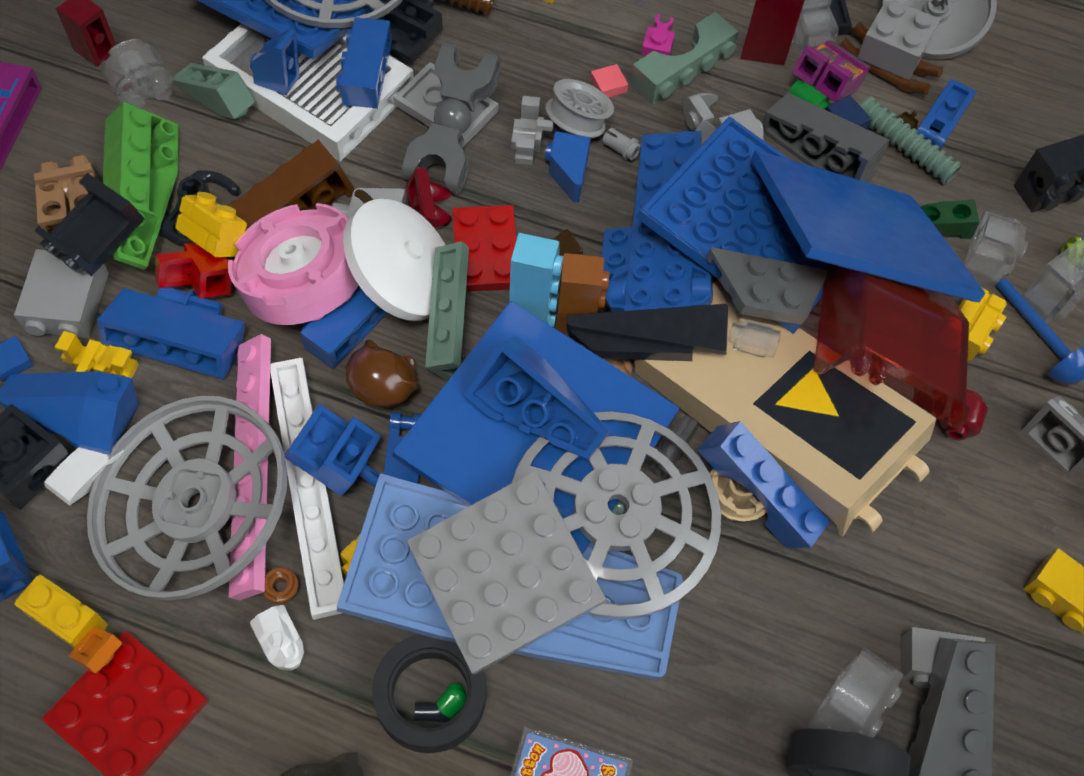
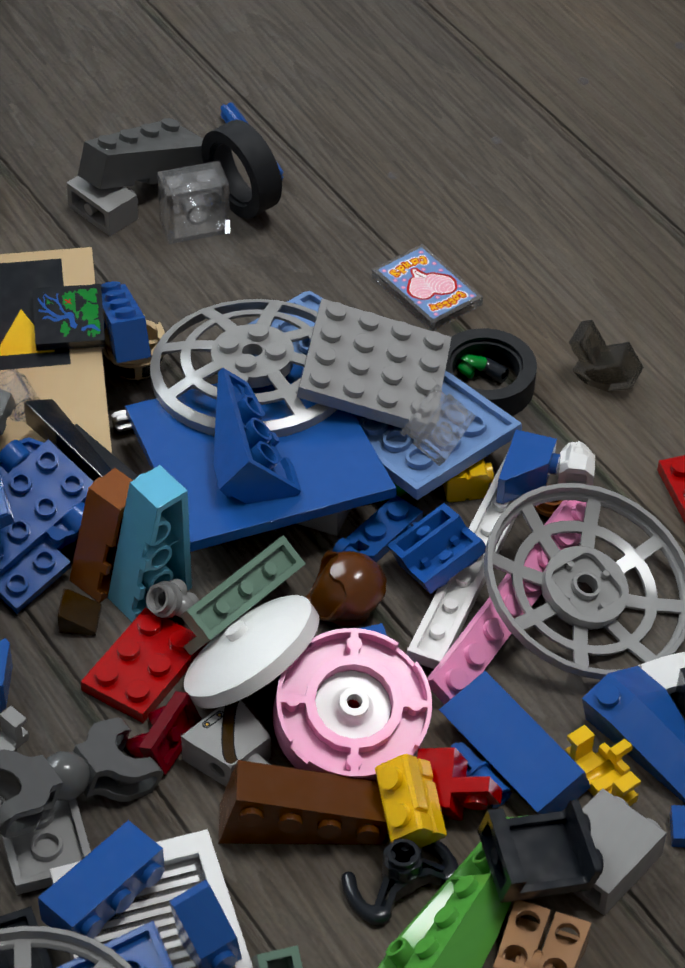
camera: 140 degrees left, 15 degrees down
(309, 579) = (527, 465): none -> blue slope
(400, 536) = (438, 424): none -> clear plate
(497, 288) = (170, 598): none -> light grey piece
(794, 430) = (68, 317): none -> tile

